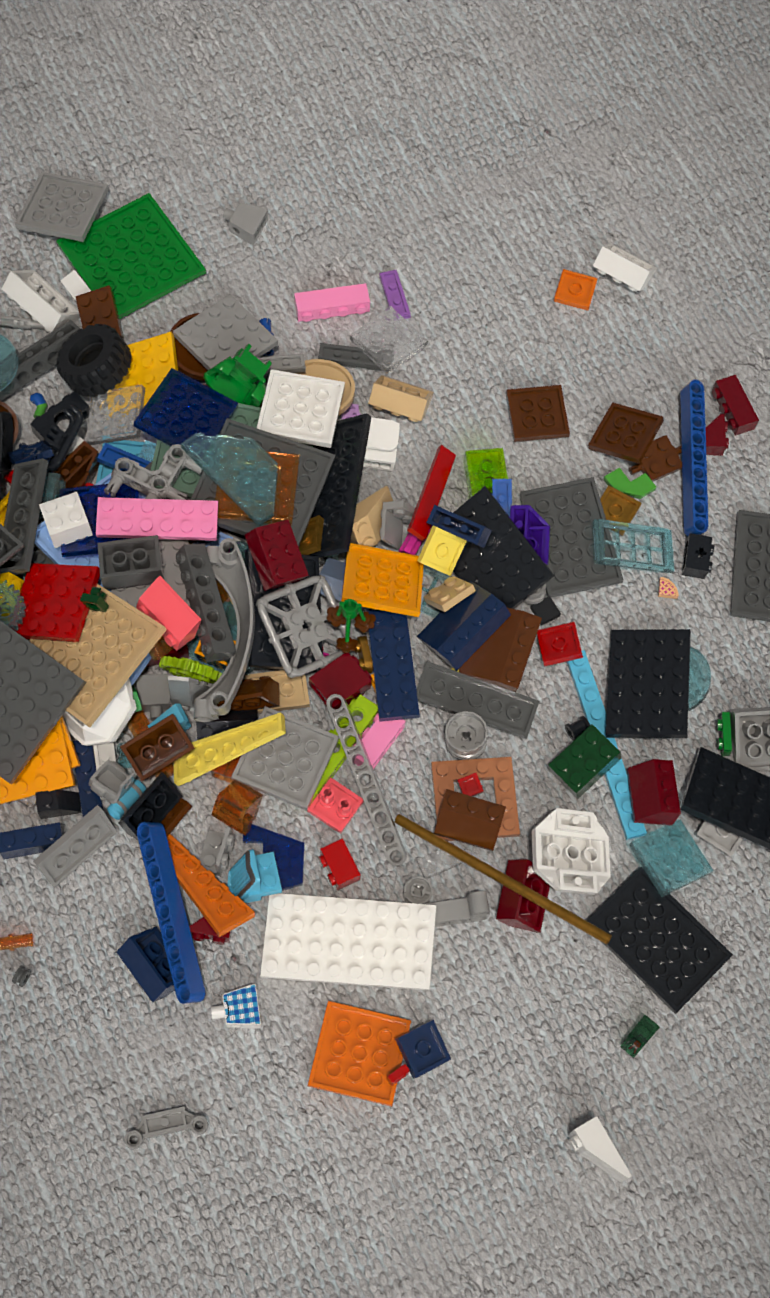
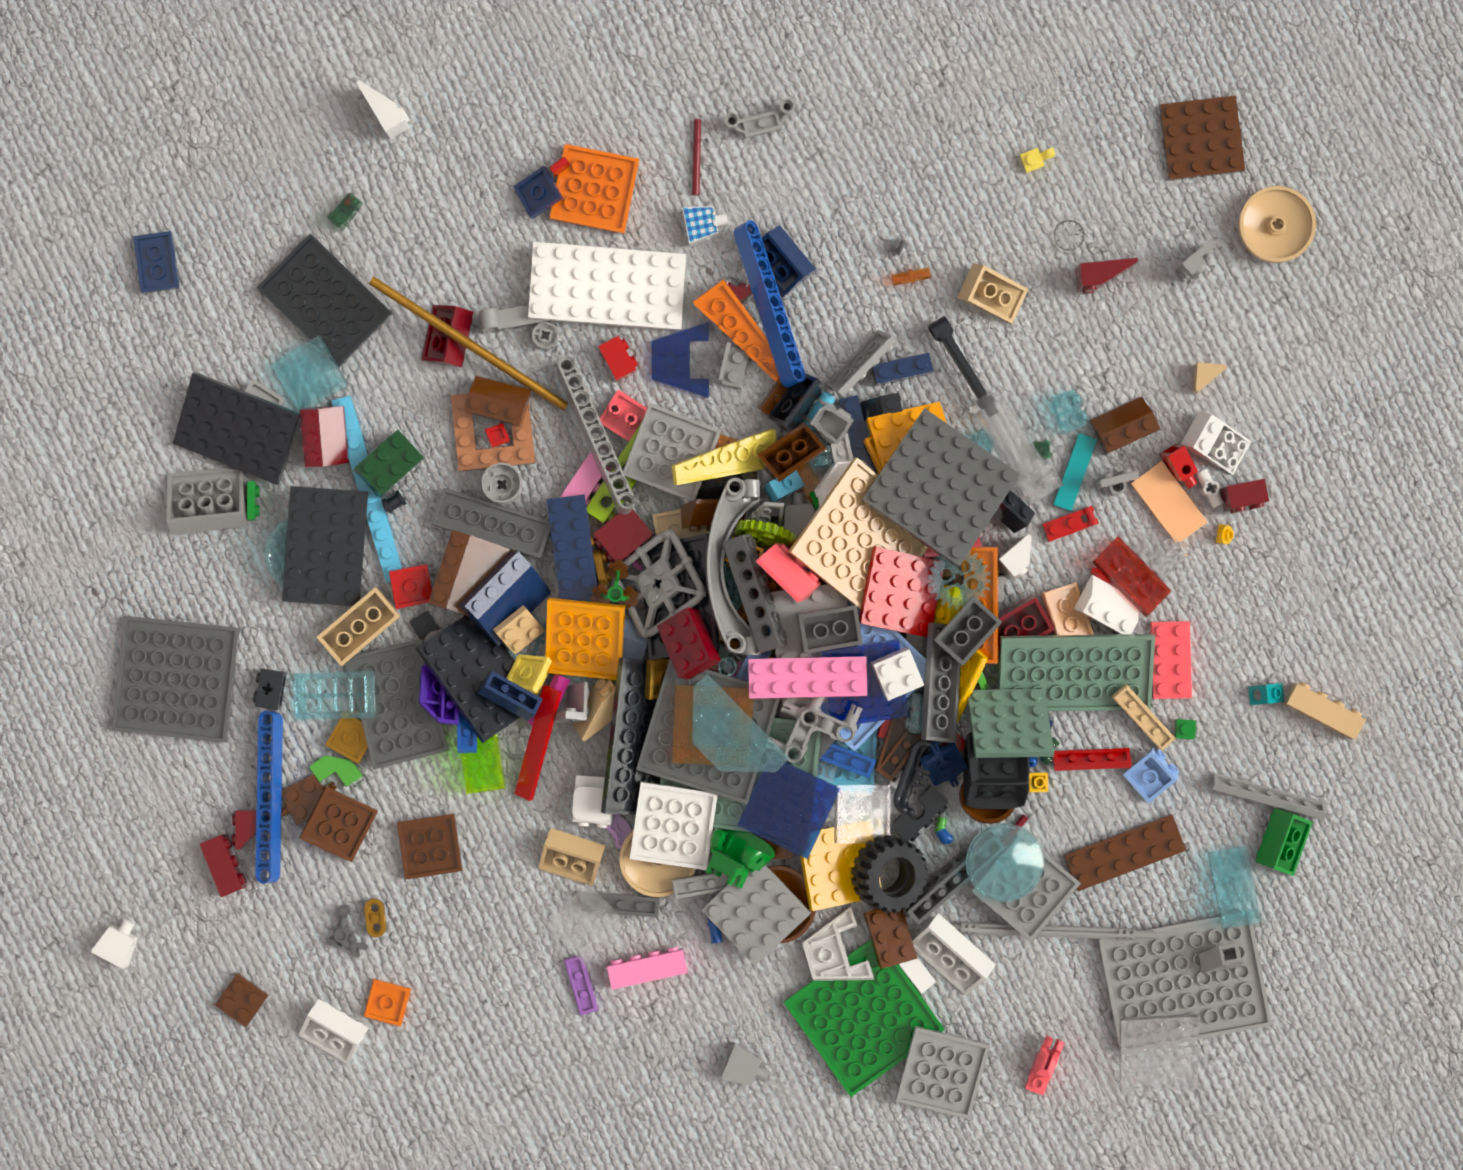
camera: 175 degrees left, 20 degrees up
(95, 600) = (859, 585): dark green tile -> none
(159, 300) = (827, 953): none -> white wing
(237, 806) = (714, 406): clear orange plate -> none
(242, 1088) = (696, 157): none -> dark red bar
(254, 877) = (695, 340): medium azure piece -> none
(585, 841) = (386, 370): white piece -> none
(588, 358) = (373, 917): none -> pearl gold plate
(611, 606) = (358, 626): none -> tan slope
(617, 342) = (343, 935): none -> dark grey piece
(667, 589) = (302, 654): light nougat tile -> none
(710, 297) = (241, 999): none -> reddish brown plate

